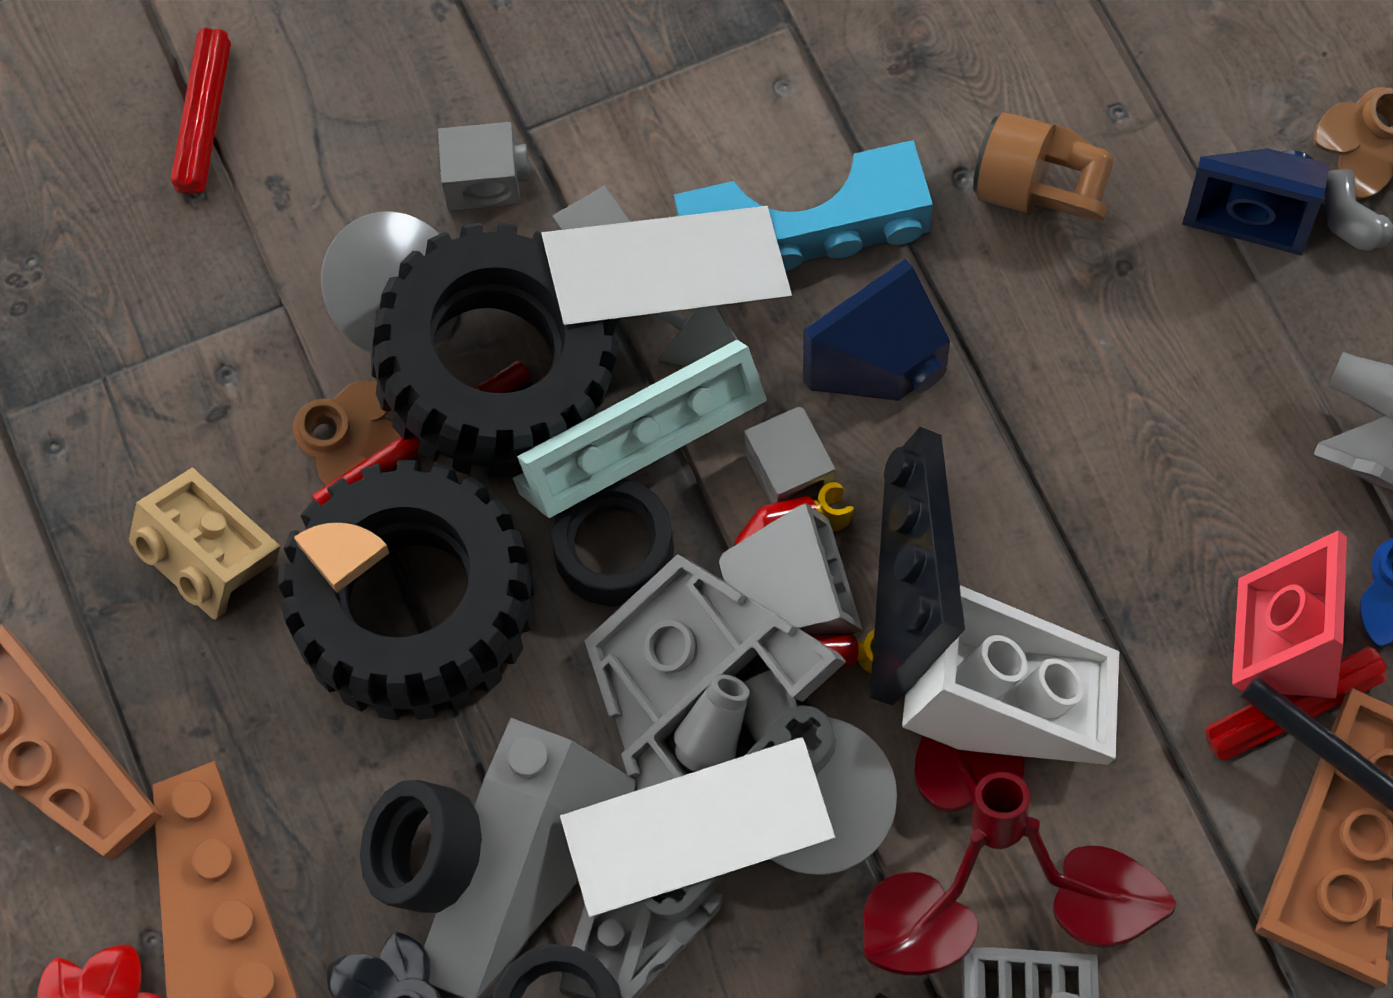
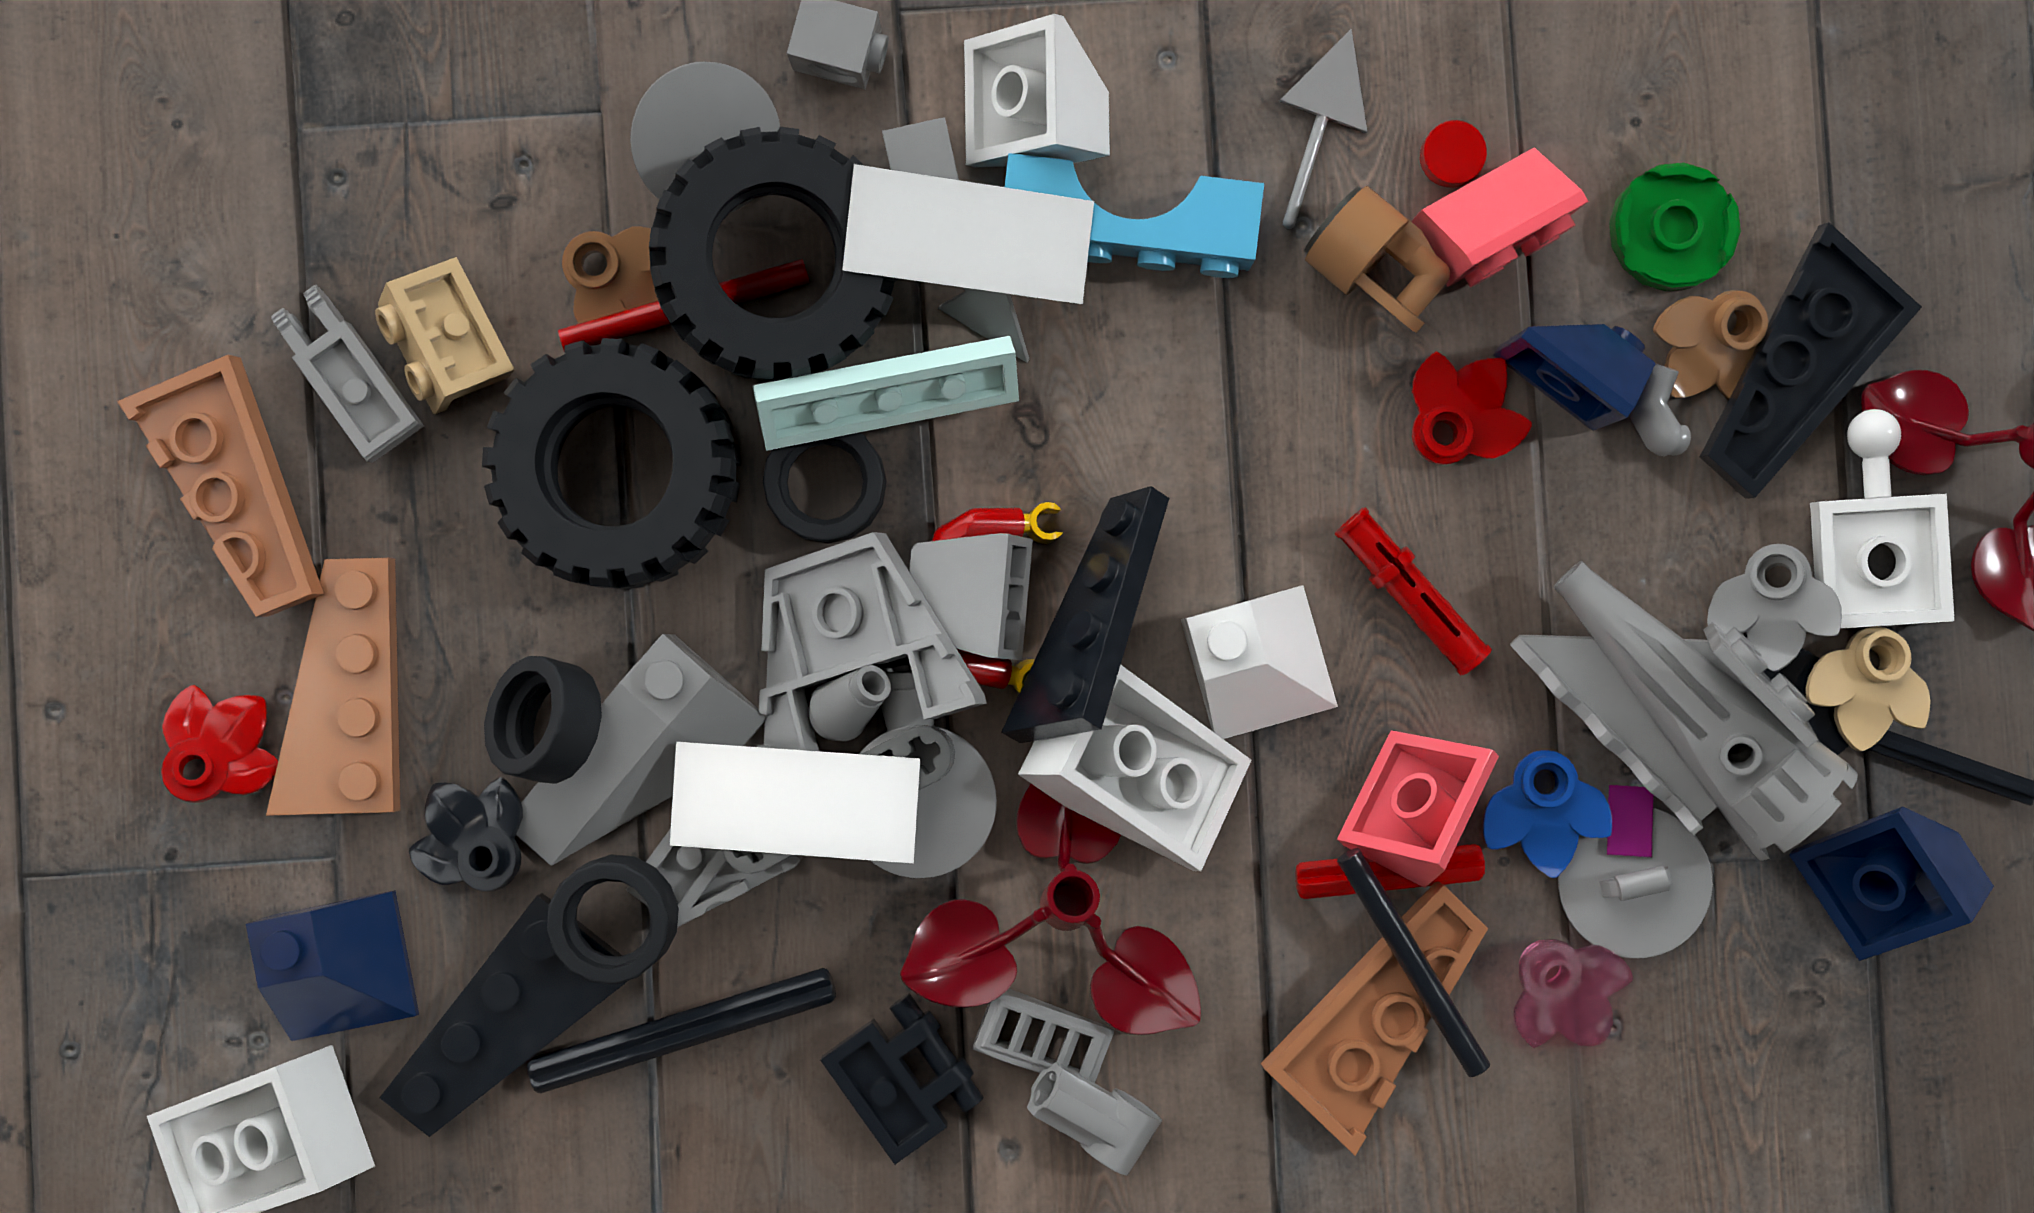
camera: 15 degrees right, 20 degrees up
(125, 612) = (349, 379): none -> light grey hinge
(341, 551) = (550, 425): light nougat tile -> none
(673, 142) = (1033, 96): none -> white slope
(788, 457) = (1019, 465): light grey panel -> none
(878, 341) = (1150, 383): dark blue slope -> none
(941, 61) = (1331, 93): none -> light grey piece
(1070, 71) = (1453, 153): none -> red tile
(1083, 557) = (1259, 663): none -> white slope
(1138, 97) = (1507, 209): none -> coral slope
(1181, 270) = (1470, 405): none -> red plate
(1202, 443) = (1412, 591): none -> red pin
(1293, 63) = (1674, 227): none -> green tile

